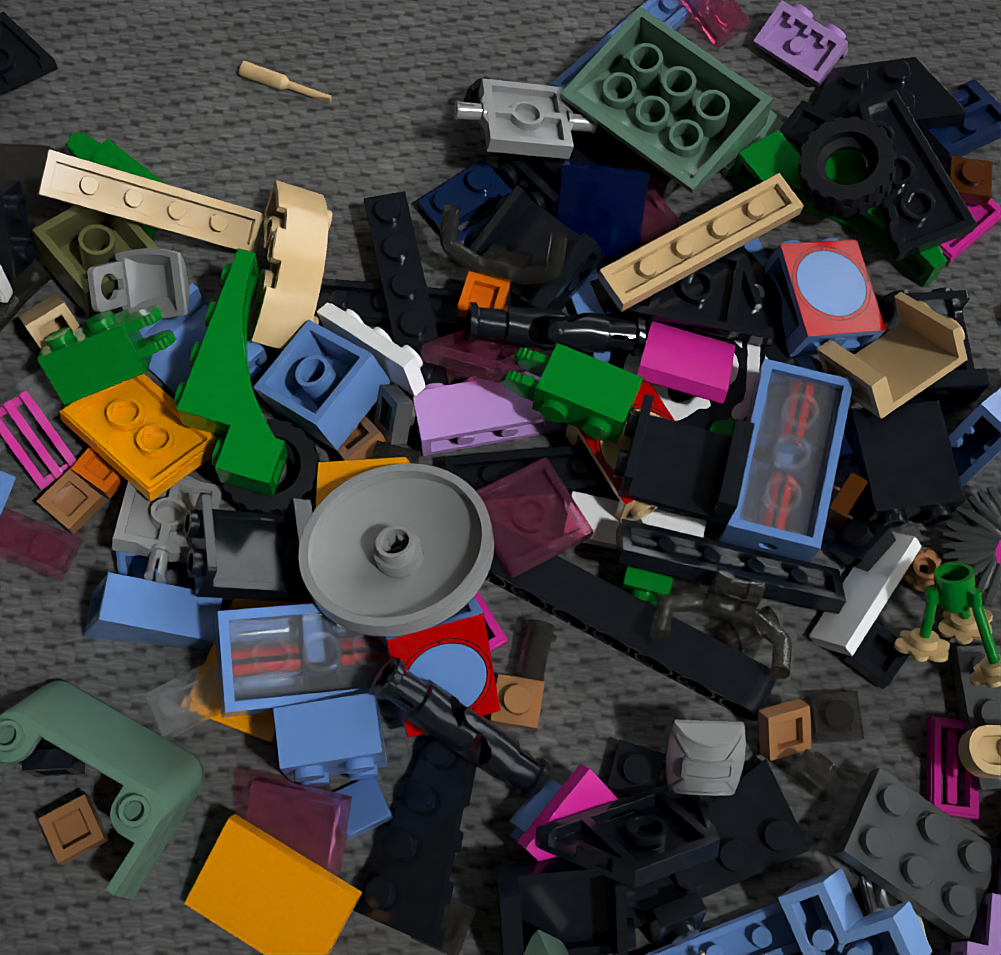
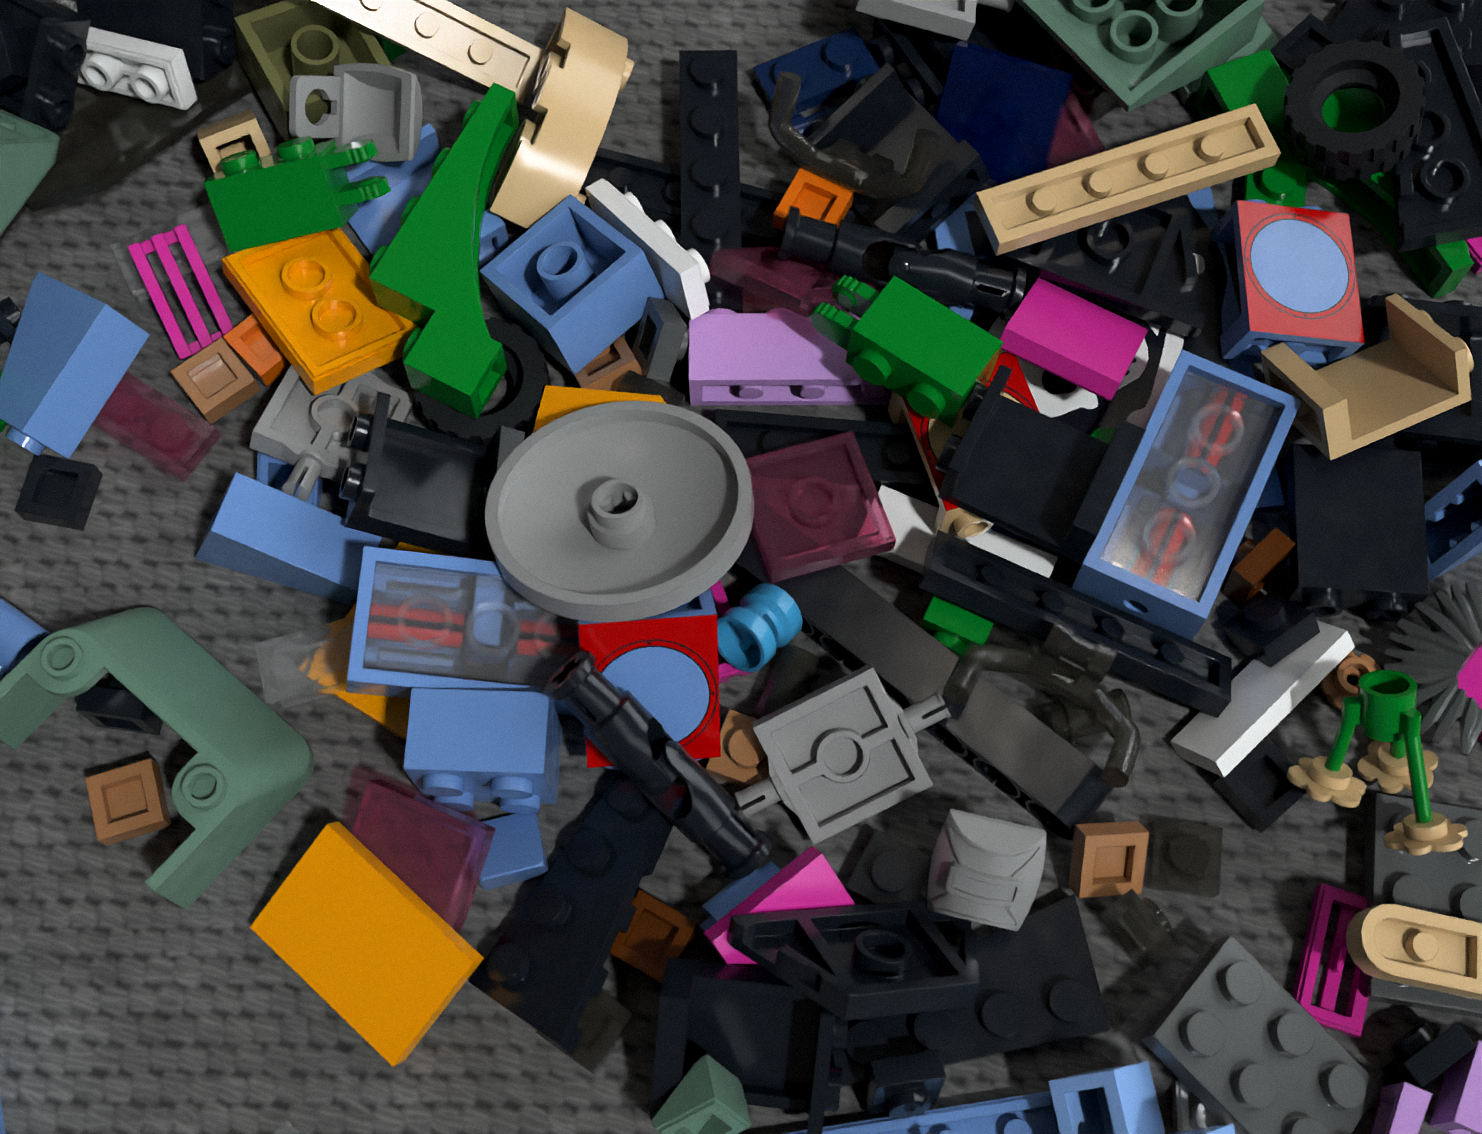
camera: 15 degrees right, 0 degrees up
(480, 851) = (653, 937): none -> reddish brown plate
(508, 610) = (754, 630): none -> dark azure wheel
(586, 692) = (842, 754): none -> light grey plate
(804, 227) = (1277, 185): none -> green plate

